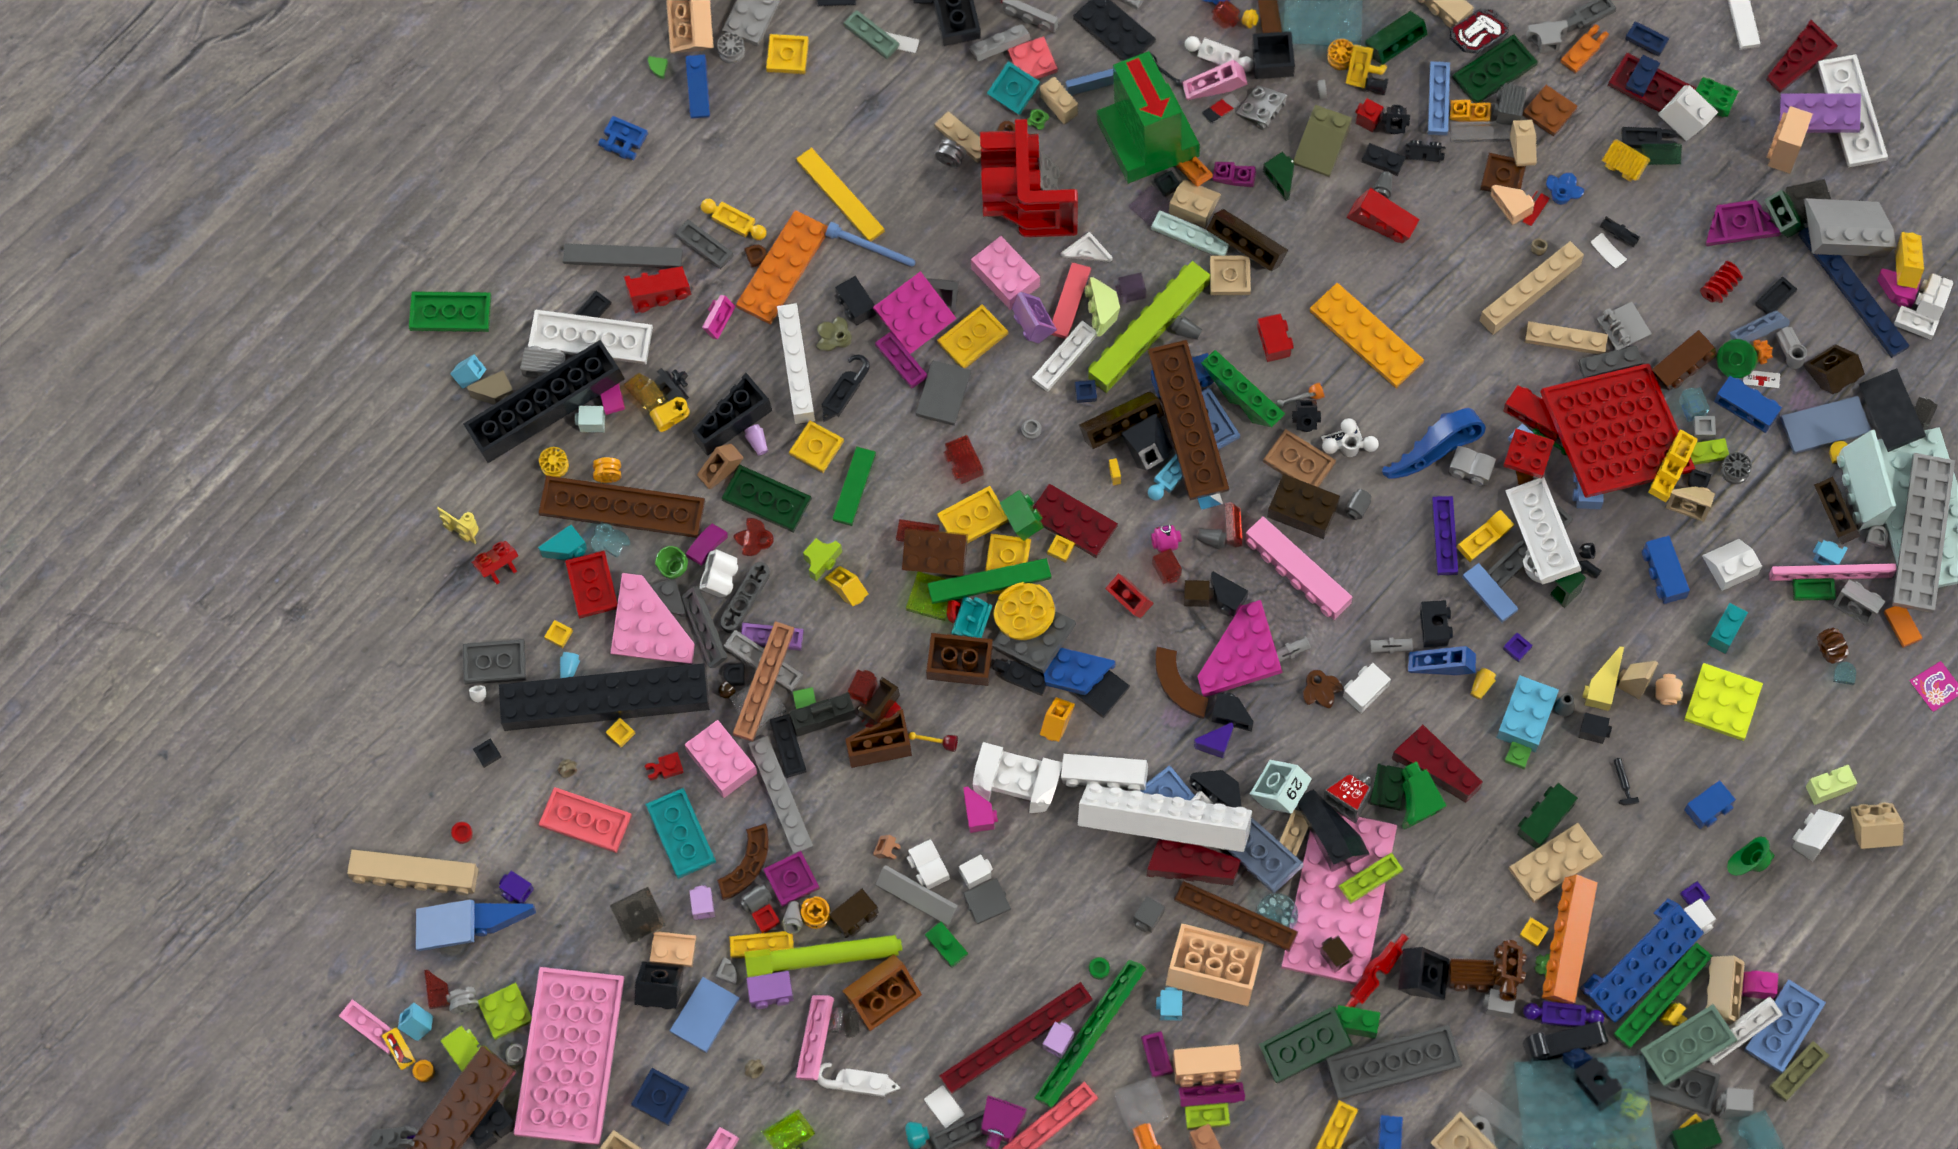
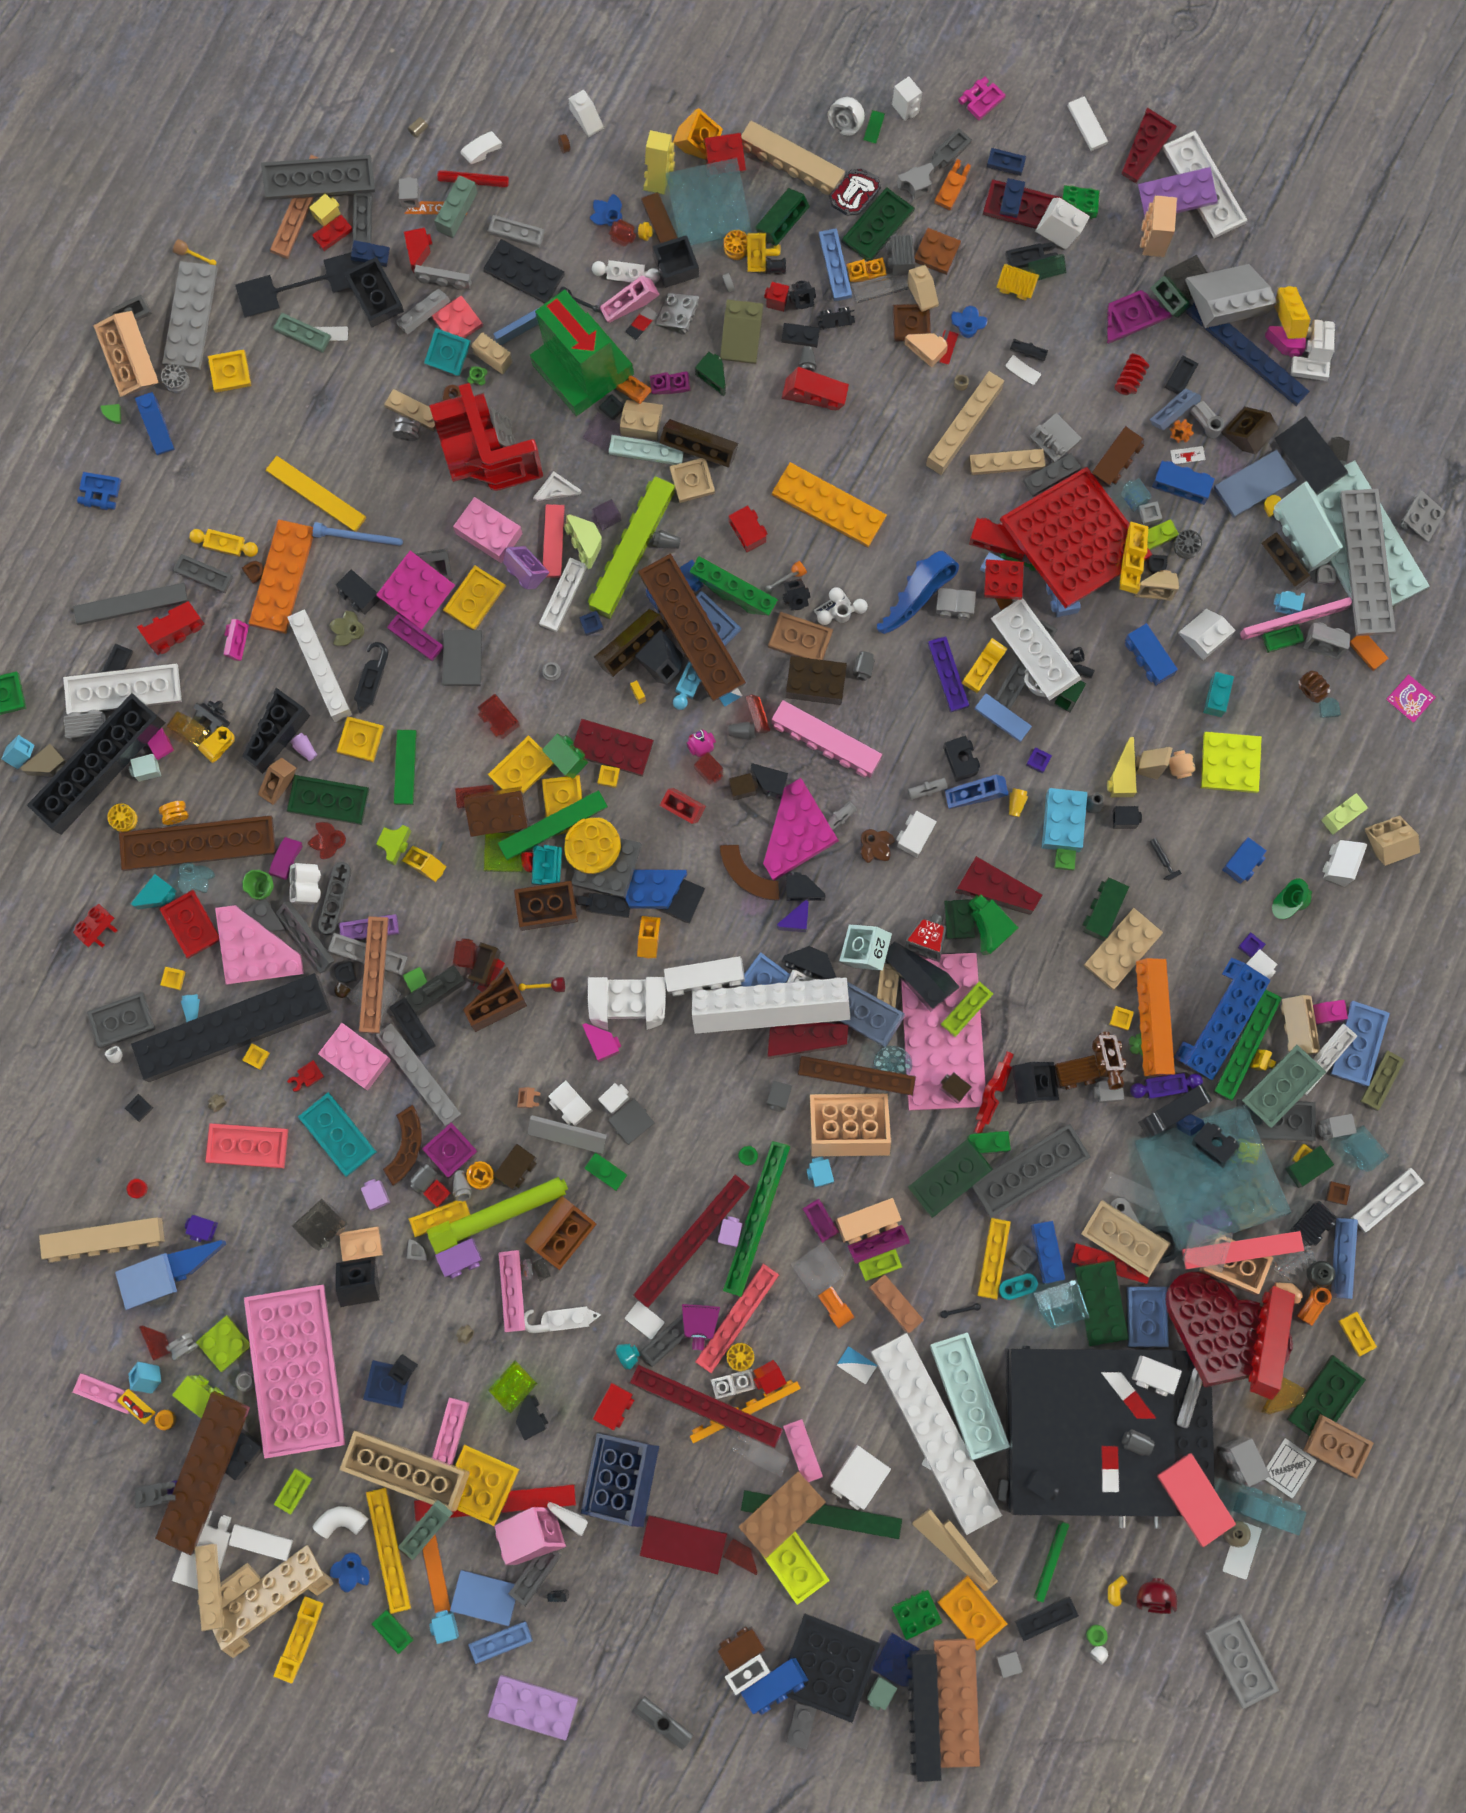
camera: 20 degrees left, 10 degrees up
(465, 526) = (58, 901): light yellow hinge -> none
(680, 1084) = (403, 1369): none -> black slope
(704, 1014) = (406, 1297): medium blue tile -> none
(1737, 358) = (1163, 442): green tile -> none

